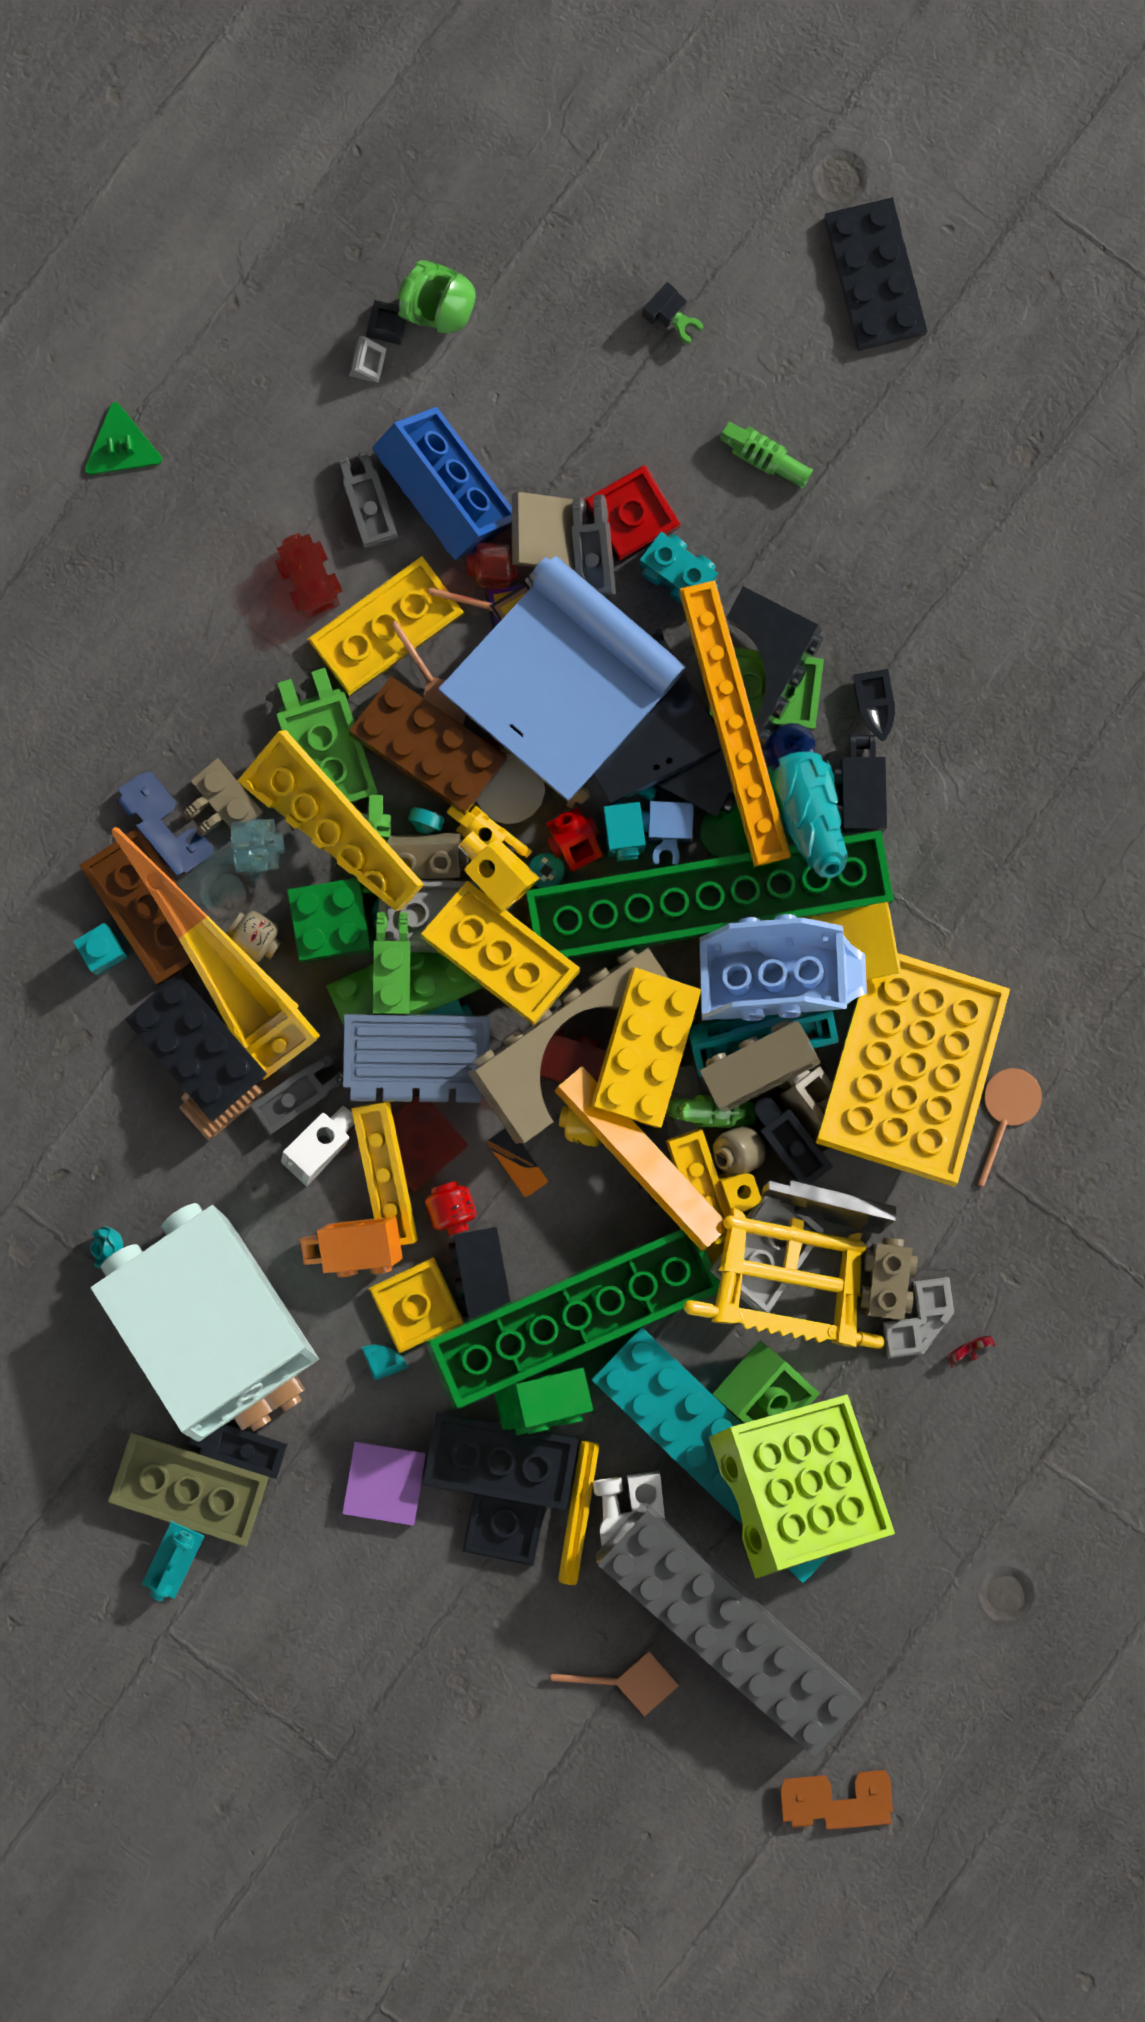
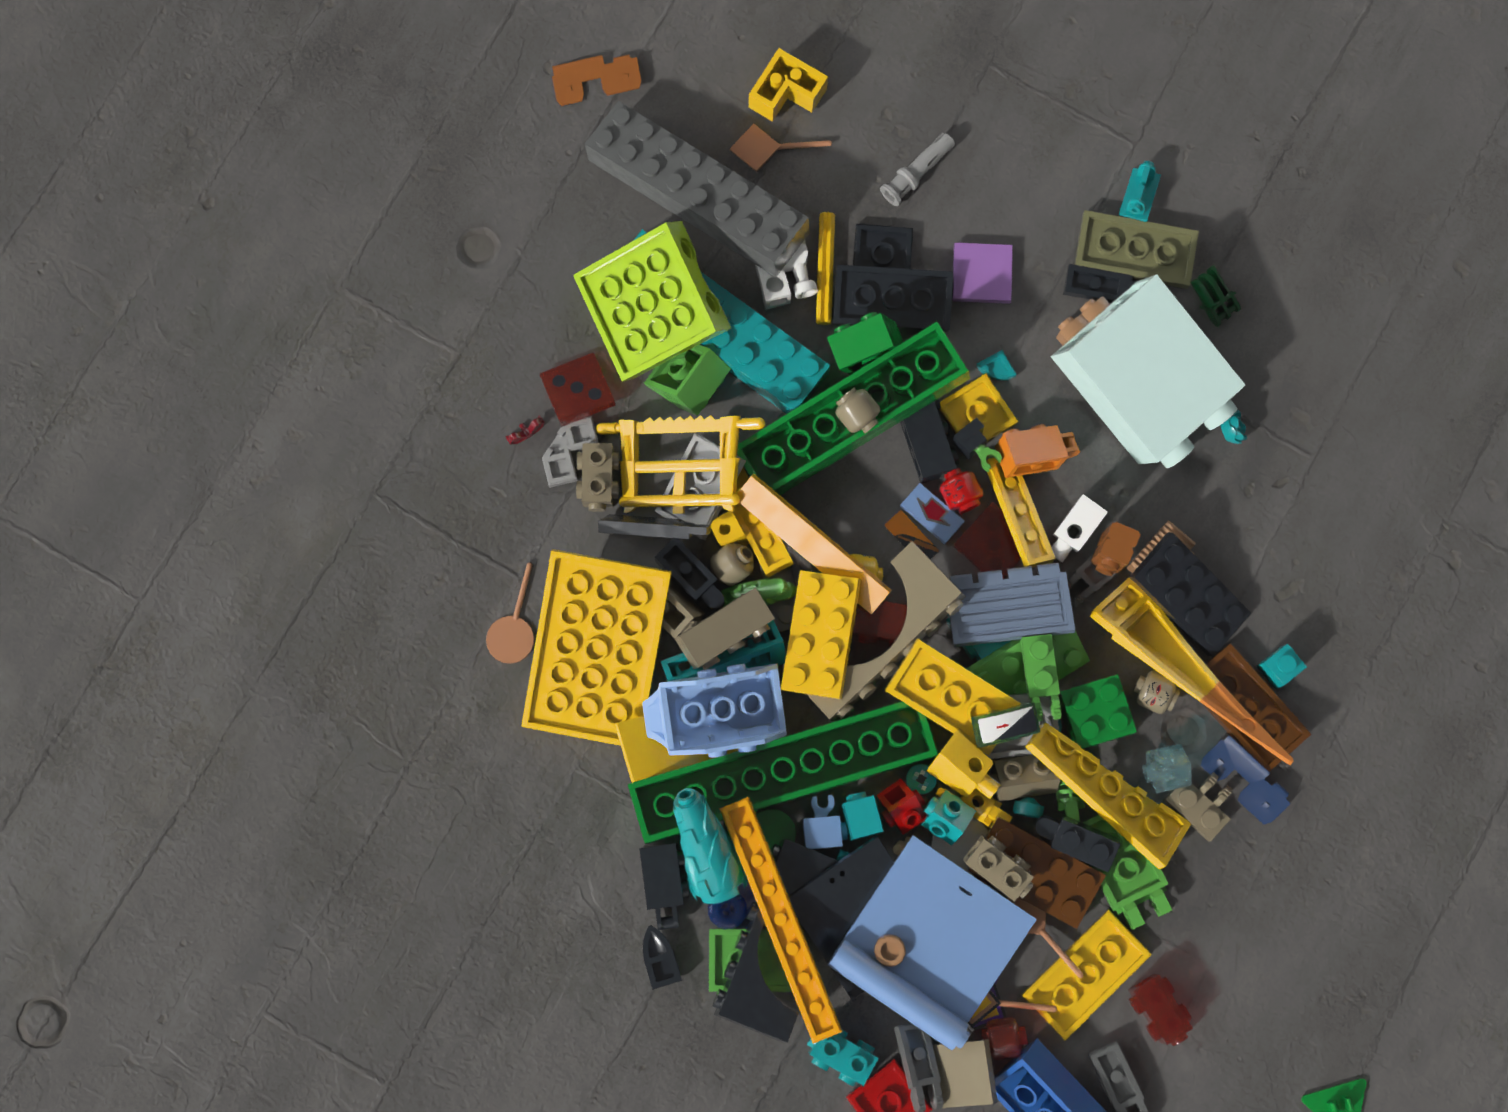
camera: 175 degrees right, 5 degrees down
(99, 1413) = (1213, 293): none -> dark green arm
(281, 1106) = (1115, 549): none -> dark orange brick
(374, 772) = (1079, 840): none -> black brick
(431, 1264) = (972, 441): none -> black piece
(444, 909) = (1005, 724): none -> slope
(459, 1617) = (909, 177): none -> light grey pin
(474, 748) = (1000, 869): none -> dark tan brick
(489, 1187) = (932, 513): none -> medium blue tile
(523, 818) = (947, 817): none -> teal brick
(569, 1307) = (857, 410): none -> dark tan head
(599, 1765) = (787, 79): none -> yellow brick
(612, 675) = (889, 950): none -> medium nougat tile
(902, 1393) = (577, 389): none -> clear red tile

